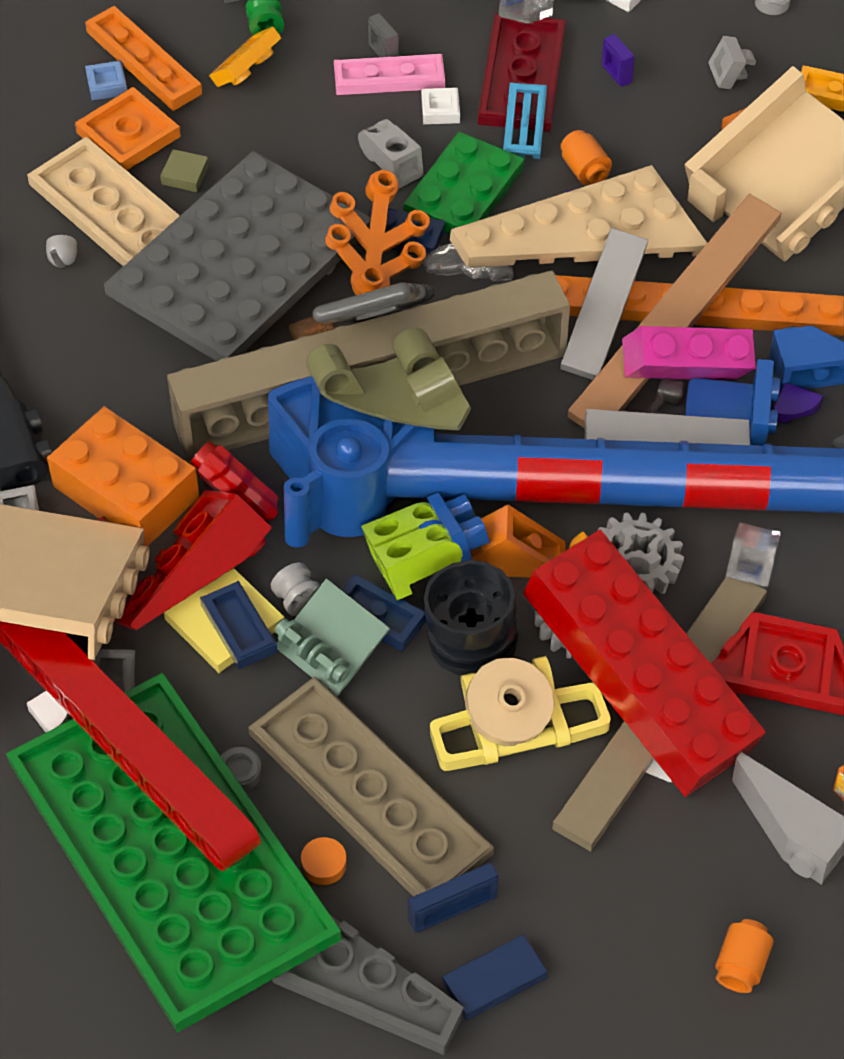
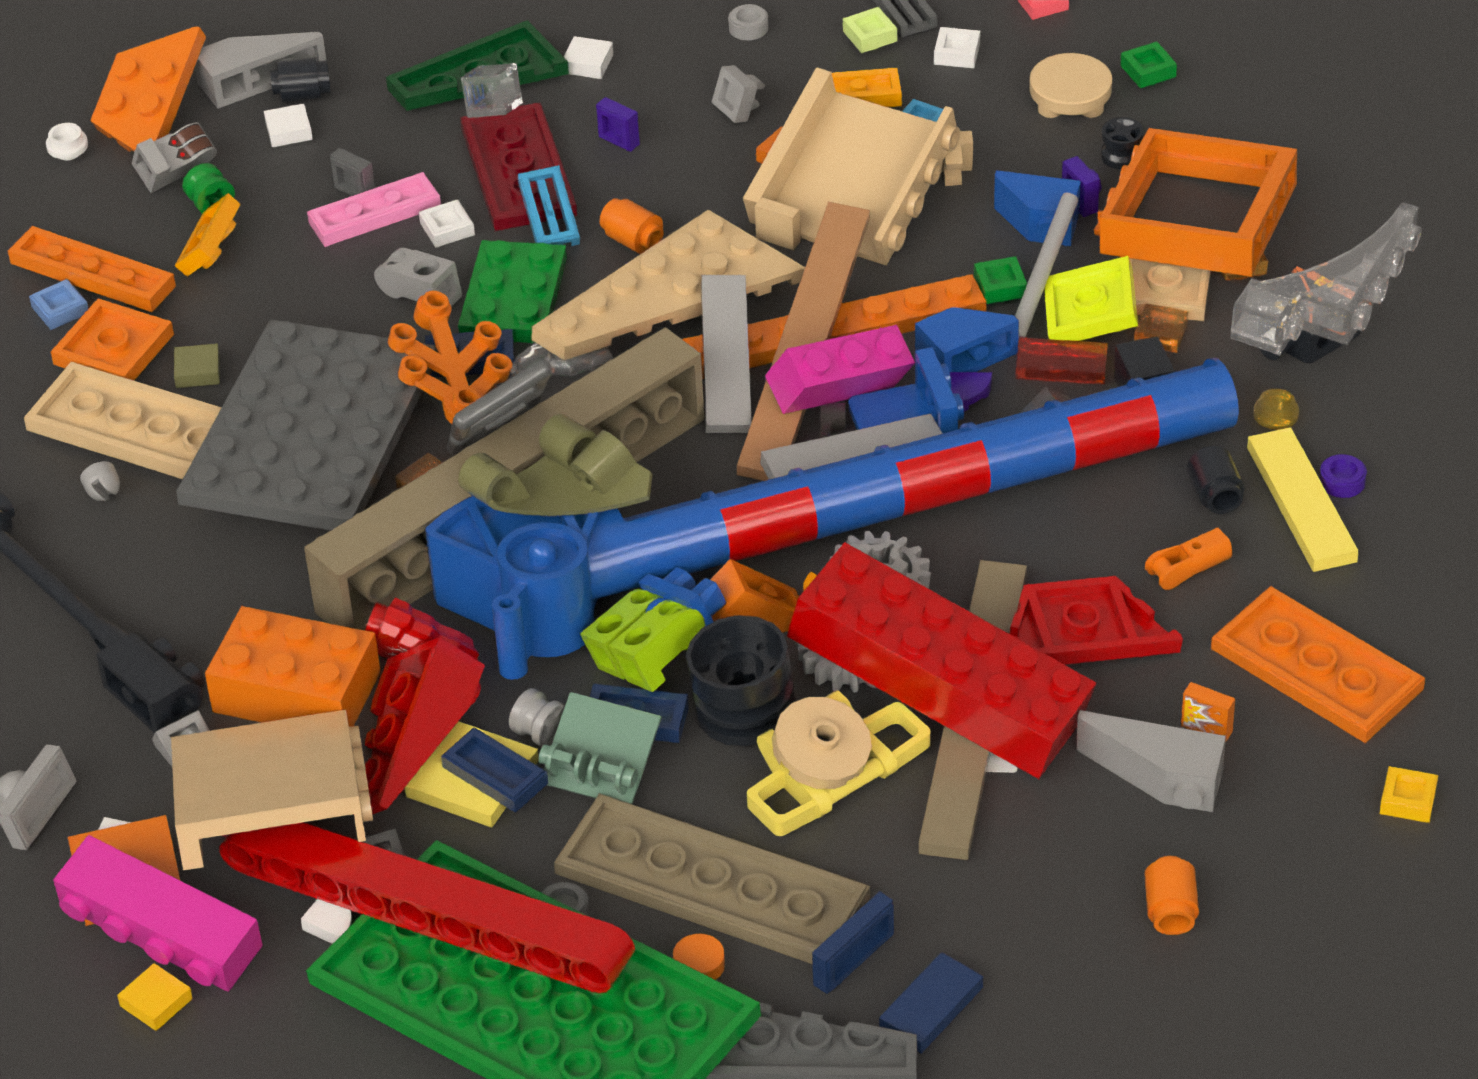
camera: 20 degrees left, 10 degrees down
(753, 554) = (998, 533): clear brick -> none

